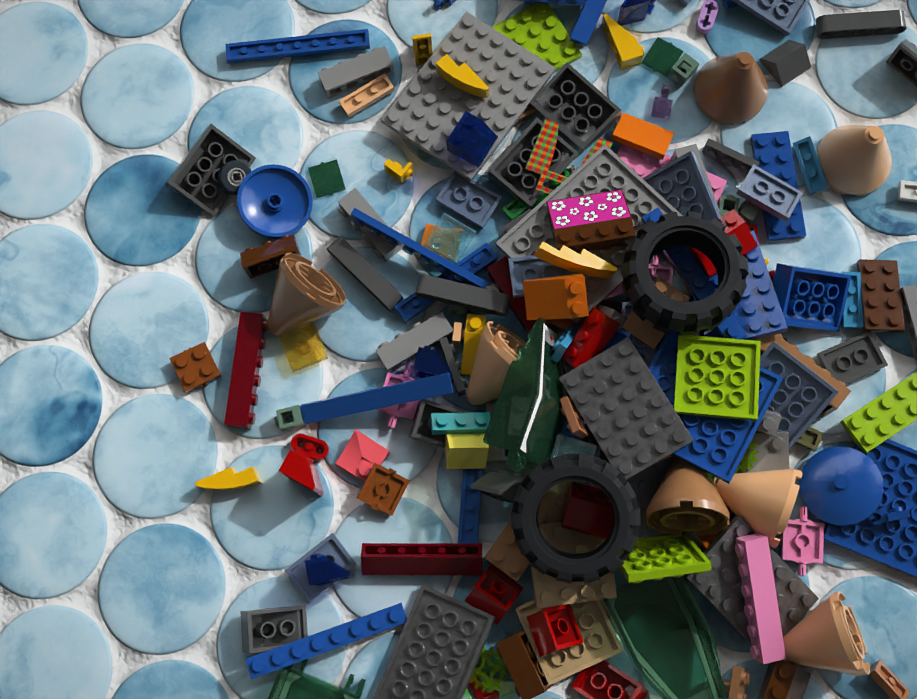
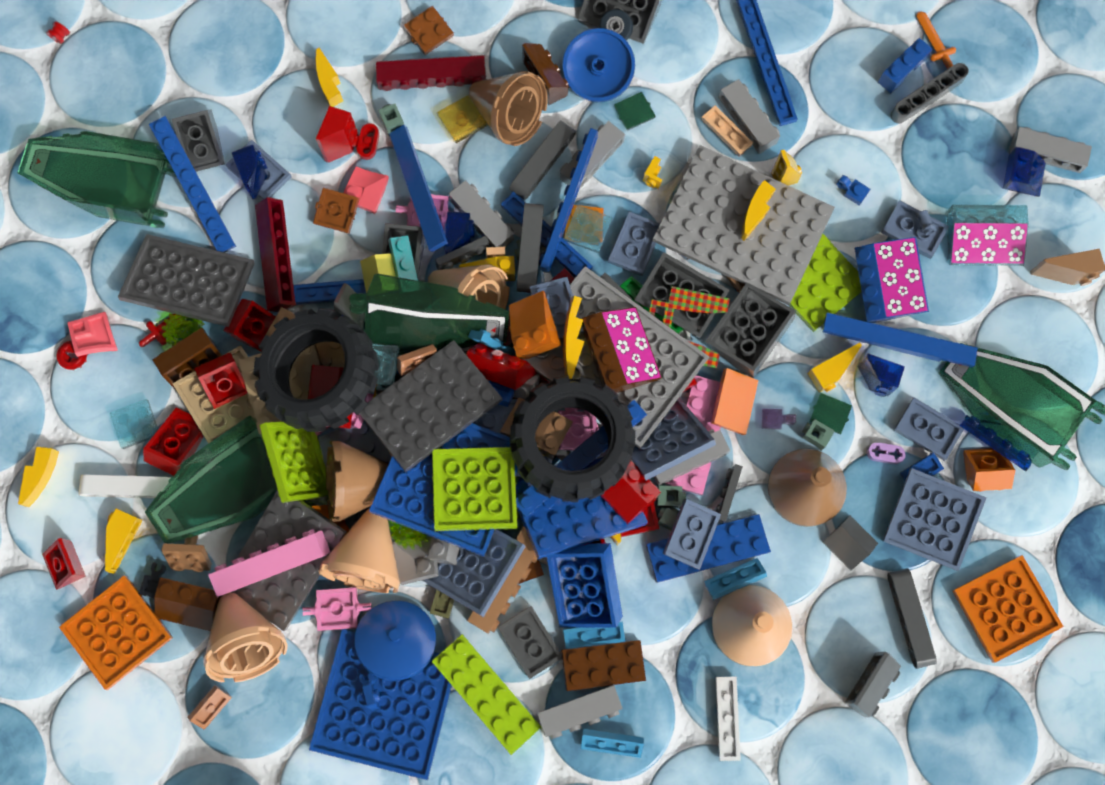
camera: 75 degrees right, 0 degrees up
(471, 139) = (690, 228): clear blue slope -> none

